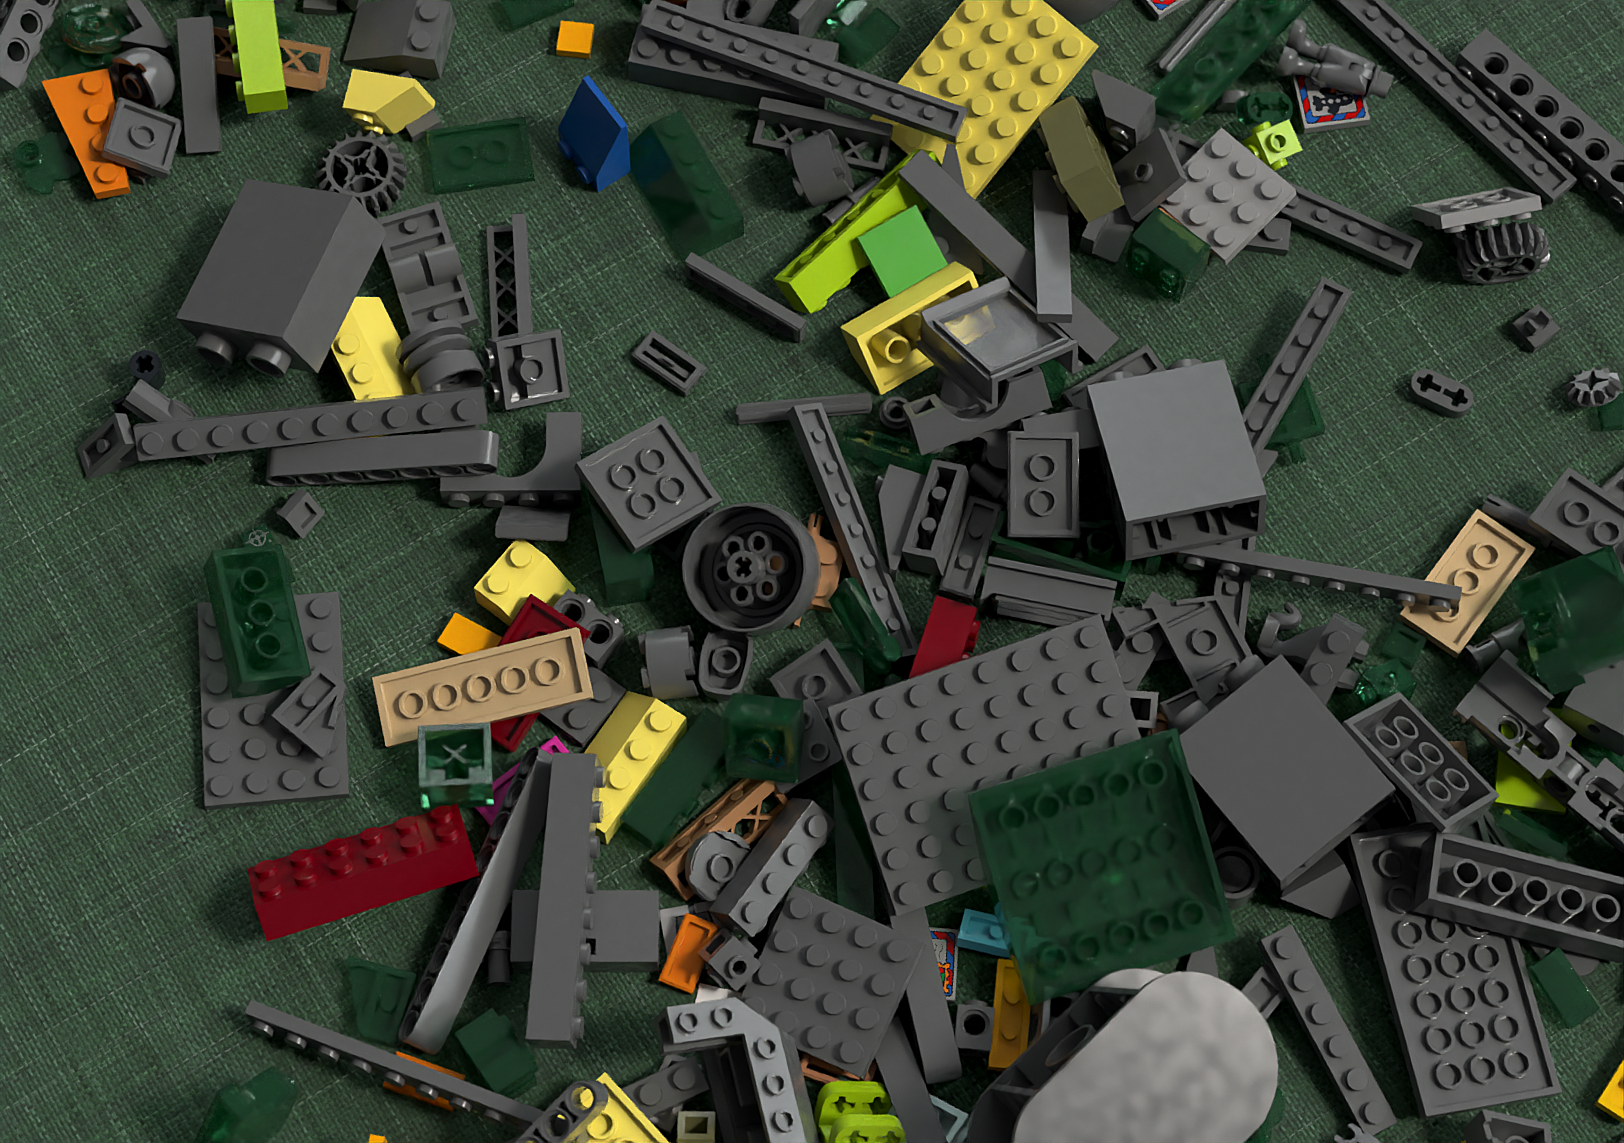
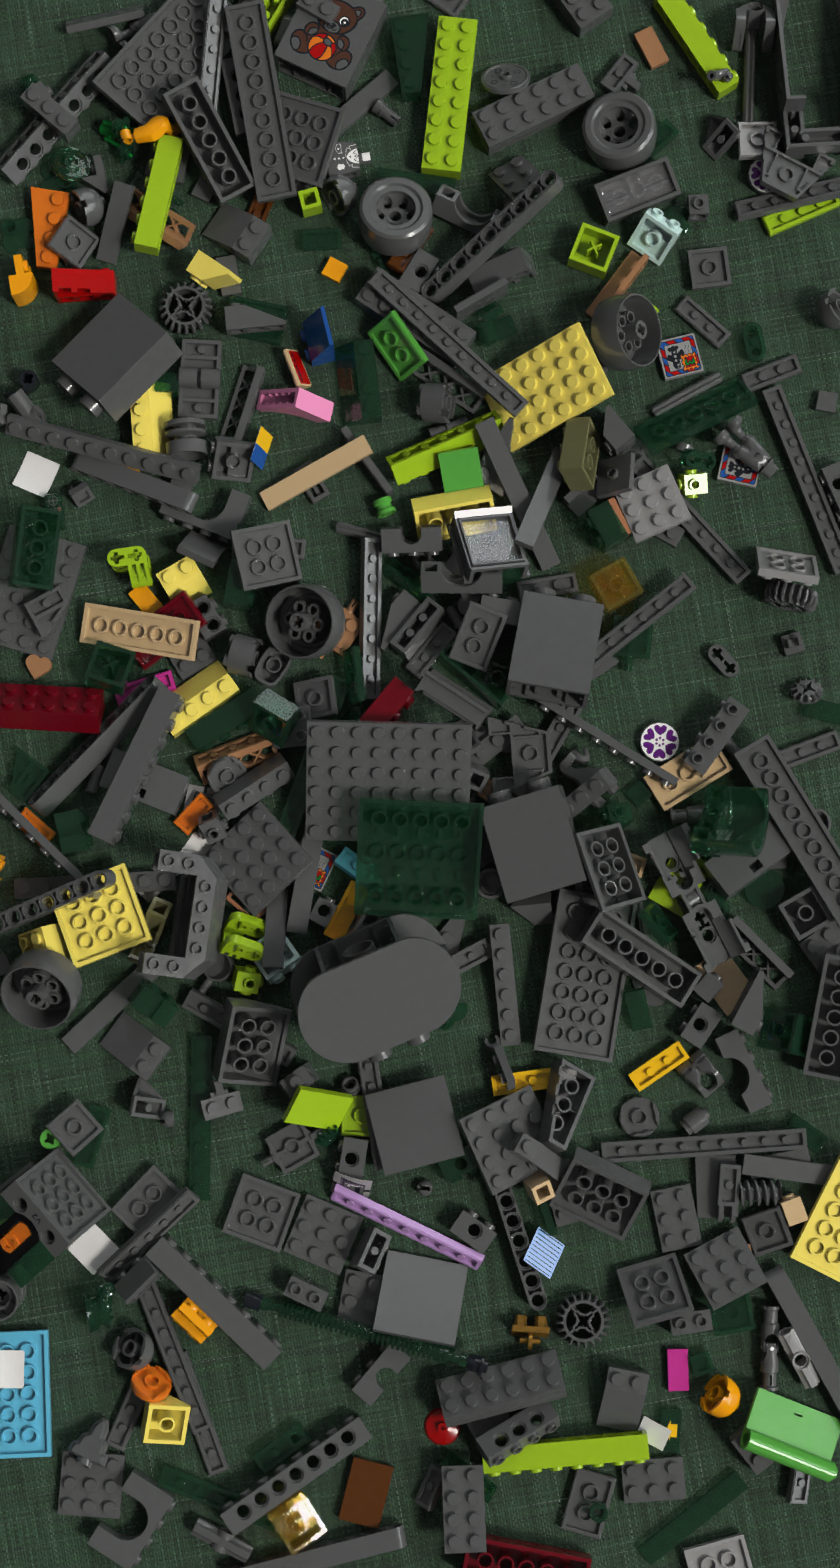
camera: 20 degrees right, 15 degrees up
(82, 223) = (23, 284): none -> light orange brick
(182, 195) = (83, 284): none -> red wedge
(211, 512) = (36, 474): none -> white sticker
(330, 813) = (38, 666): none -> medium nougat tile
(379, 291) = (168, 384): none -> clear green panel
(432, 588) = (139, 571): none -> lime piece
(470, 153) = (246, 320): none -> dark grey slope
(568, 335) = (261, 448): none -> sticker
(574, 204) = (296, 368): none -> slope
(596, 245) = (295, 402): none -> bright pink arch
(672, 341) = (316, 472): none -> tan tile
(724, 107) = (397, 345): none -> bright green tile
(802, 355) = (384, 507): none -> bright green wheel
(843, 398) = (394, 542): none -> dark grey arch
(1223, 331) = (615, 585): none -> clear yellow brick
(1399, 549) = (659, 742): none -> tile
(1487, 505) = (715, 737): none -> dark grey brick

